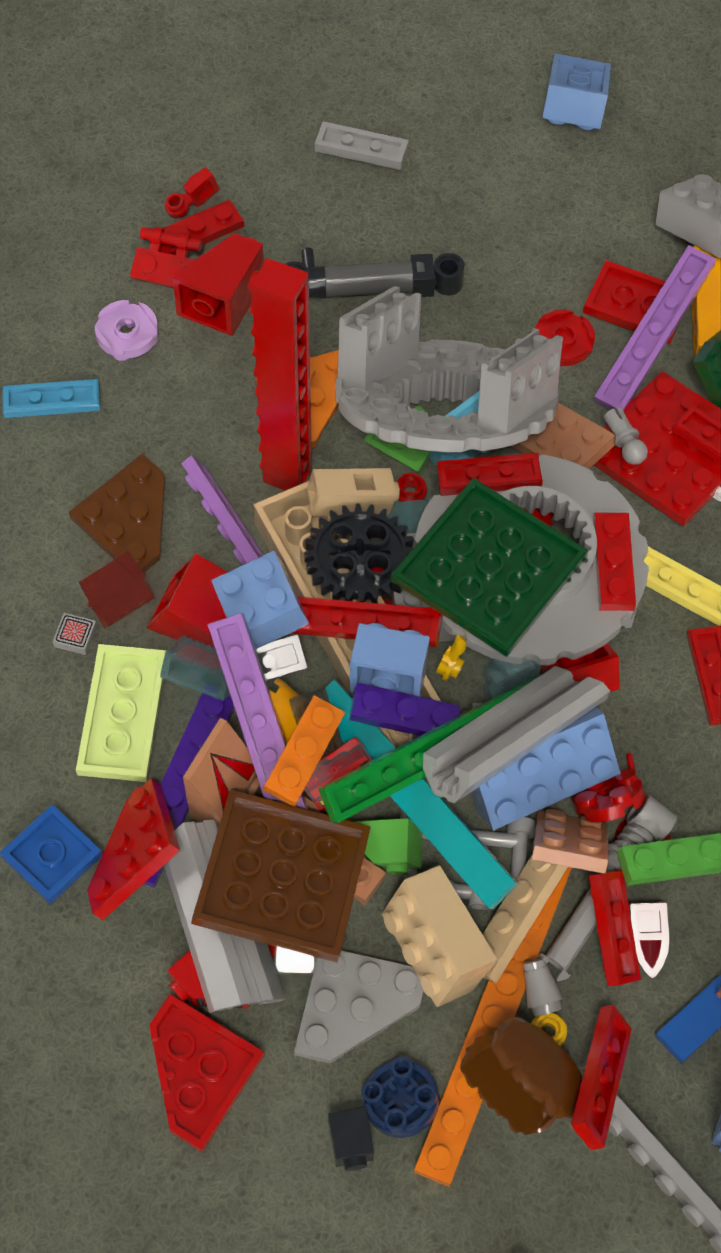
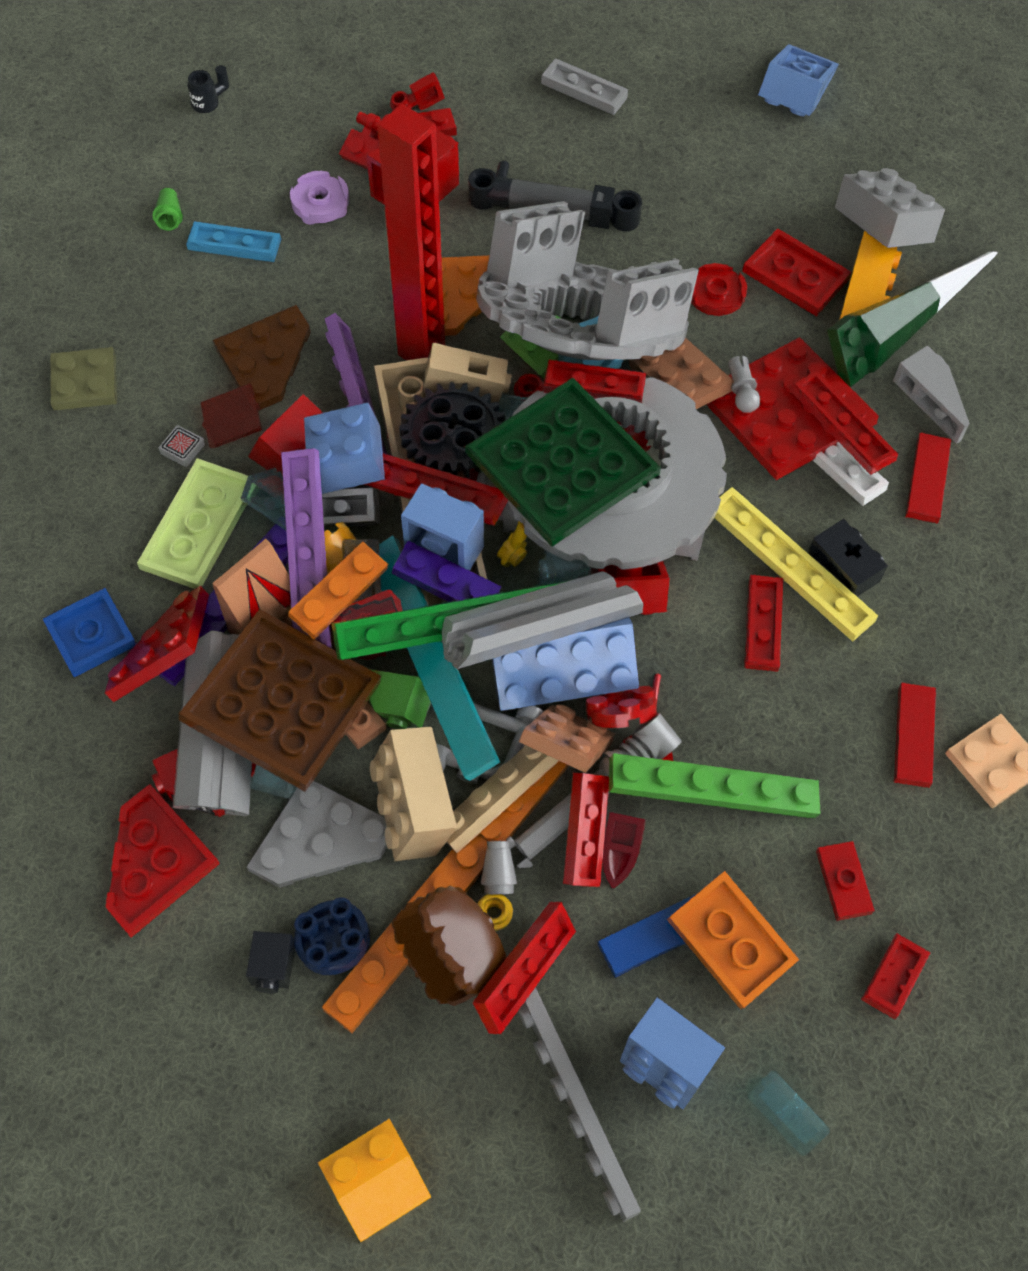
camera: 15 degrees right, 0 degrees up
(614, 562) = (687, 487): red plate -> none
(655, 329) = (803, 296): medium lavender plate -> none

